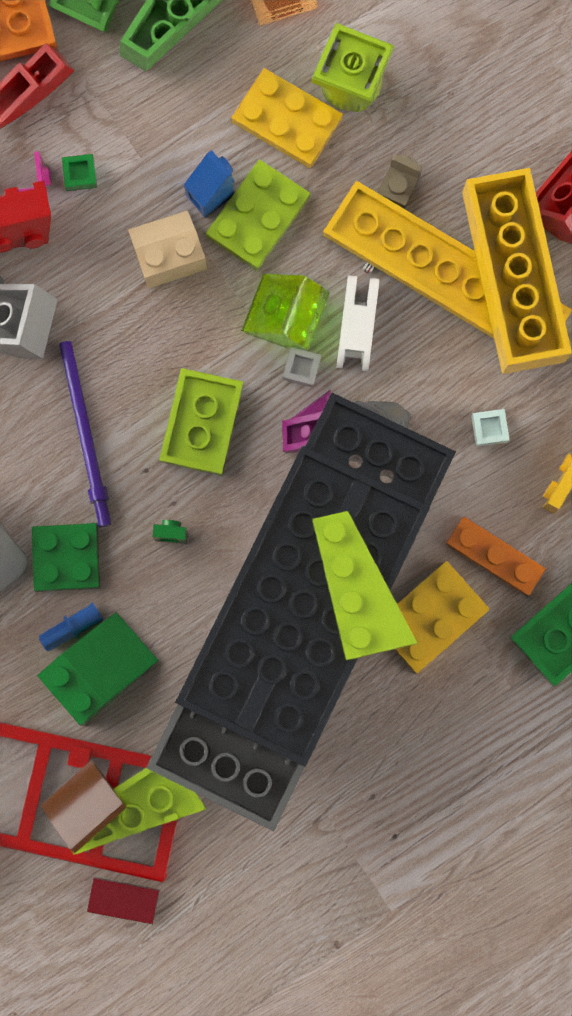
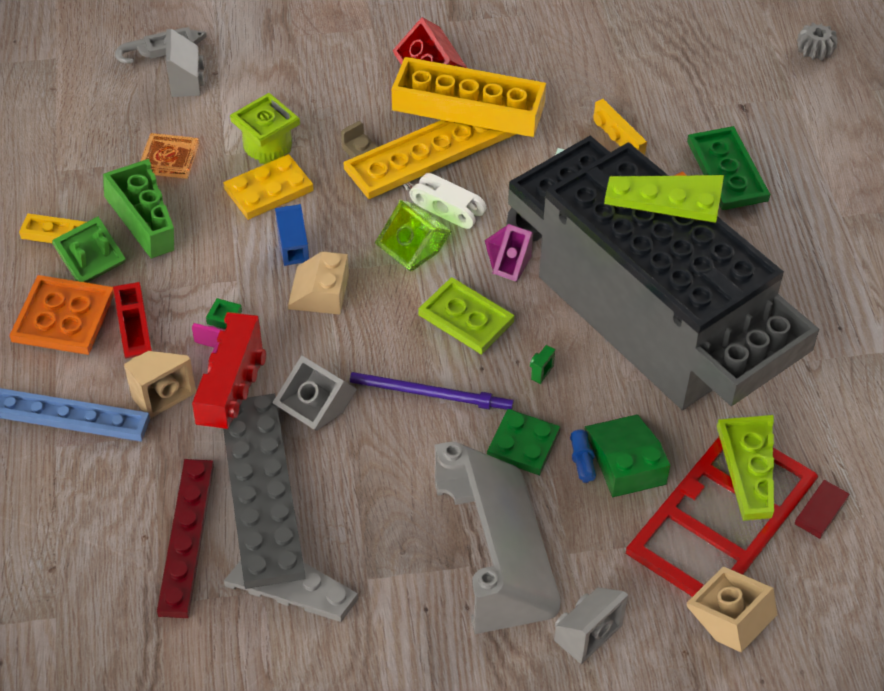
camera: 65 degrees left, 30 degrees down
(83, 806) = (737, 486): slope -> none
(258, 215) = (332, 227): lime plate -> none
(301, 367) = (460, 243): light grey plate -> none

